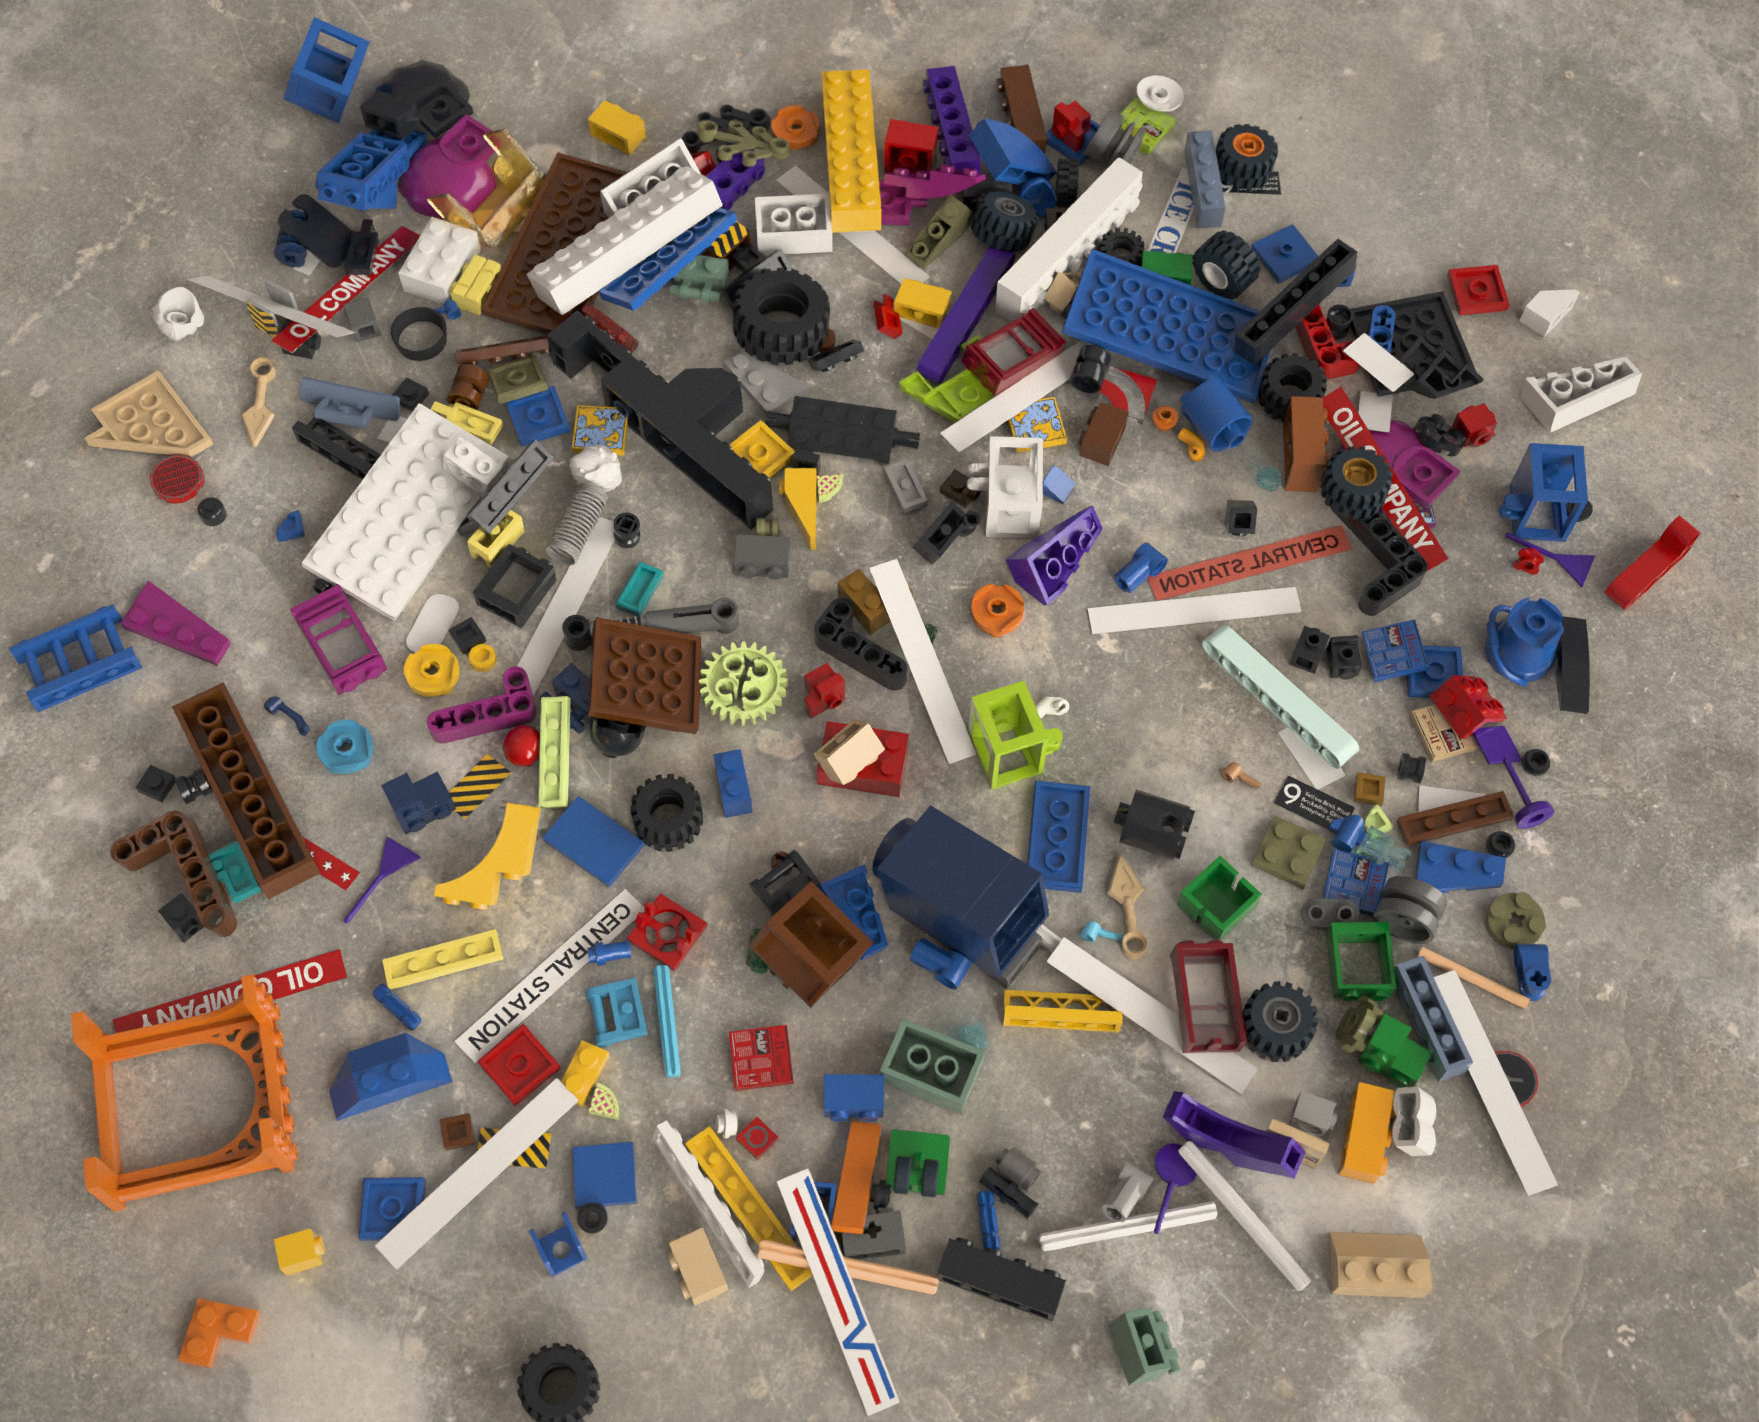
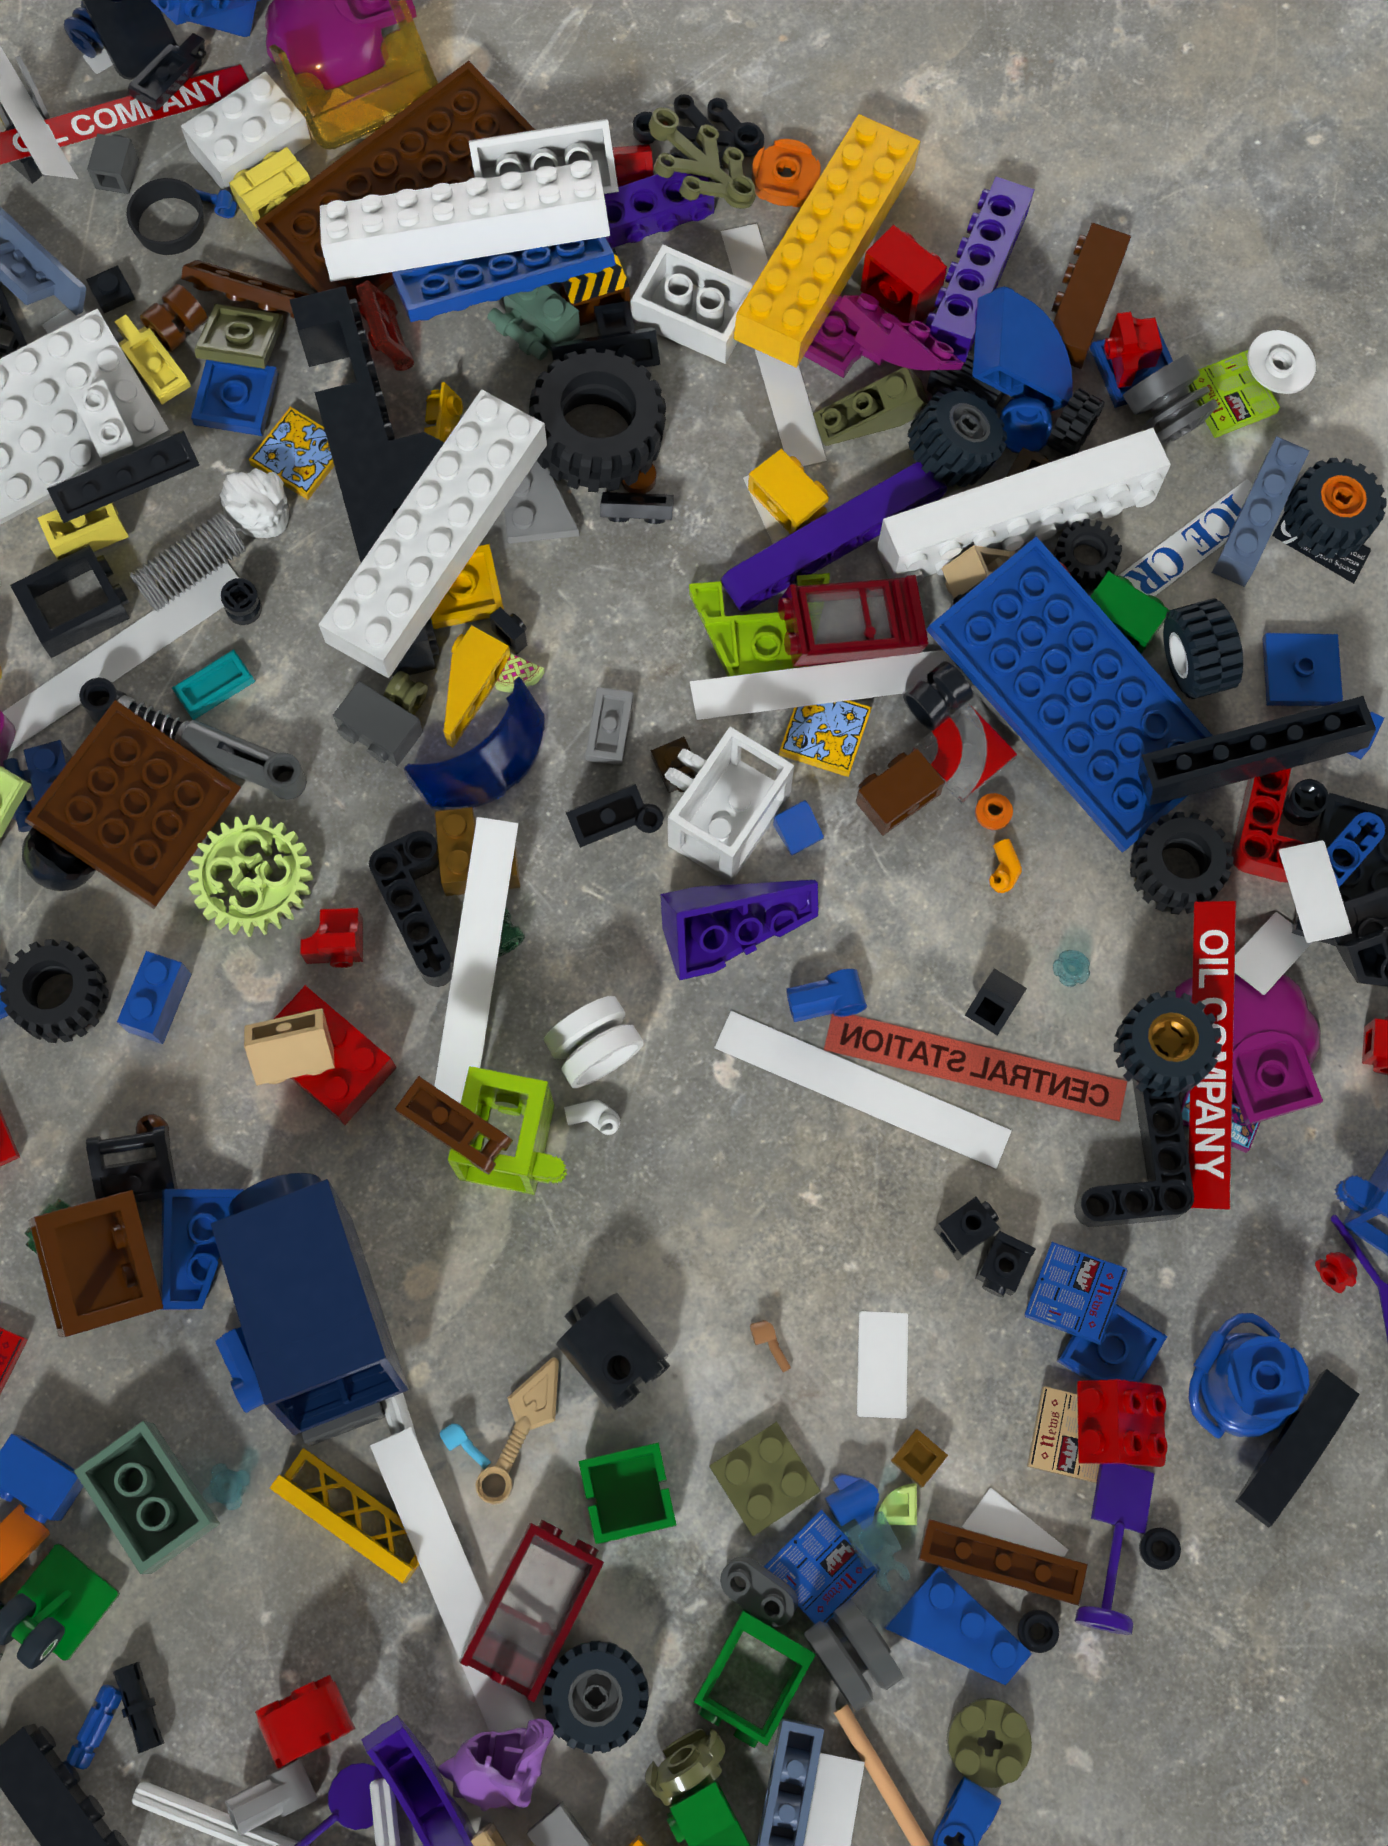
camera: 30 degrees right, 10 degrees up
(617, 127) = (567, 62): yellow brick -> none
(676, 359) = (444, 409): none -> yellow hinge
(737, 419) = (434, 533): none -> white brick
(842, 429) = (580, 610): black plate -> none
(848, 547) = (490, 766): none -> clear blue windscreen
(887, 319) = (730, 489): red plate -> none
(988, 730) = (452, 1124): none -> reddish brown plate
(997, 623) = (604, 970): orange plate -> none
(1017, 1168) = (167, 1684): flat silver brick -> none
(1024, 659) = (593, 1041): none -> white wheel
(1059, 834) = (496, 1289): blue tile -> none
(1119, 1133) = (304, 1721): none -> red brick
(1216, 414) = (1055, 847): blue cylinder -> none
(1253, 1091) = (499, 1766): none -> medium lavender head
(1280, 696) = (889, 1270): light aqua beam -> none
(1305, 444) = (1144, 950): dark orange brick -> none
(1312, 803) = (839, 1432): black sticker -> none
(1411, 768) = (990, 1463): black wheel -> none
(1439, 435) = (1347, 1044): black plate -> none

